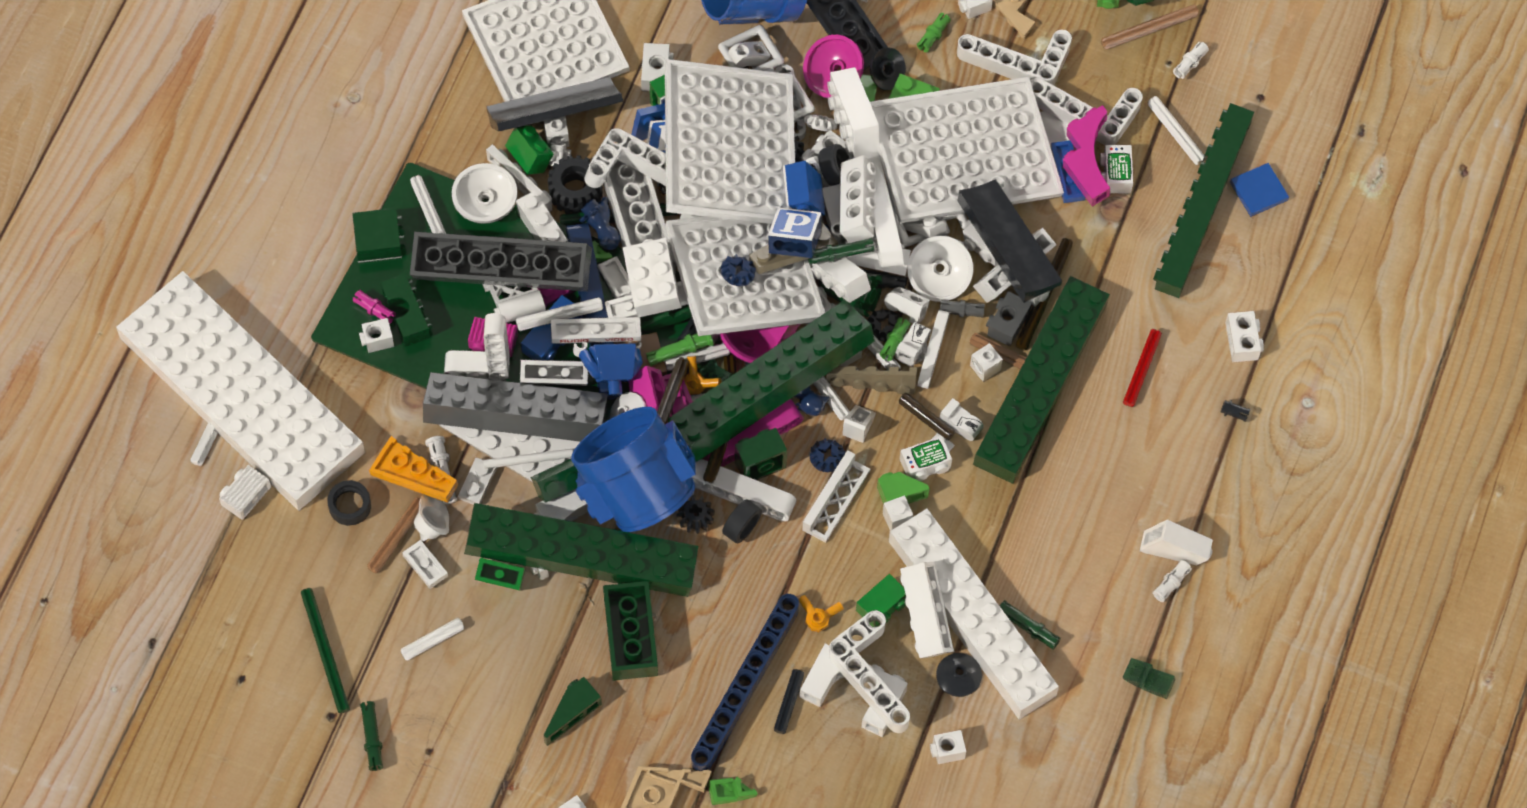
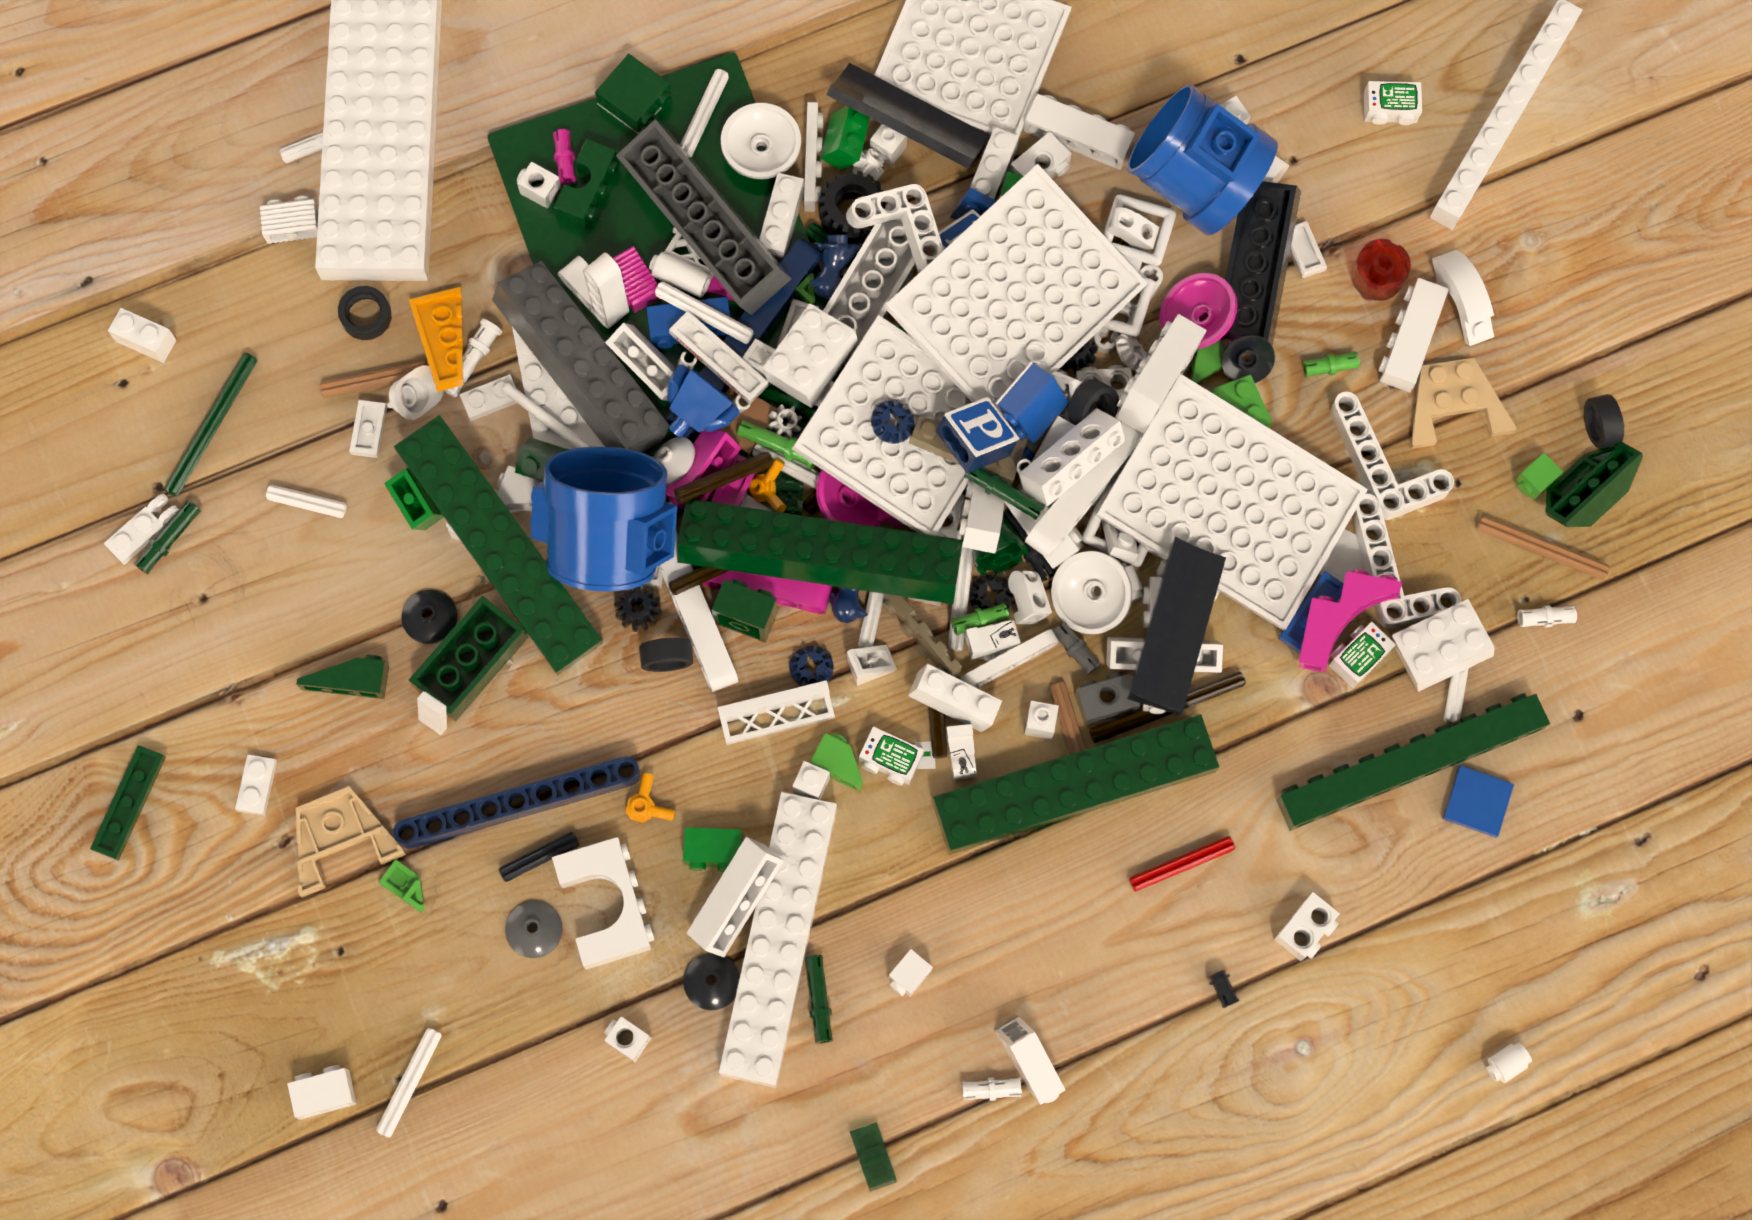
camera: 45 degrees right, 10 degrees up
(227, 637) = (142, 335): none -> white brick
(349, 749) = (140, 530): none -> white hinge
(579, 644) = (430, 629): none -> black dish
(629, 84) = (995, 163): none -> white brick
(644, 678) = (432, 713): none -> white tile
(661, 28) = (1080, 131): none -> white brick
(668, 333) = (791, 418): none -> white gear
(829, 754) = (544, 939): none -> dark grey dish
(866, 674) = (617, 900): white beam -> none
(927, 393) = (954, 698): none -> white brick
(1063, 562) = (909, 974): none -> white brick
(1156, 122) = (1443, 645): none -> white brick
(1419, 306) = (1508, 1062): none -> white brick

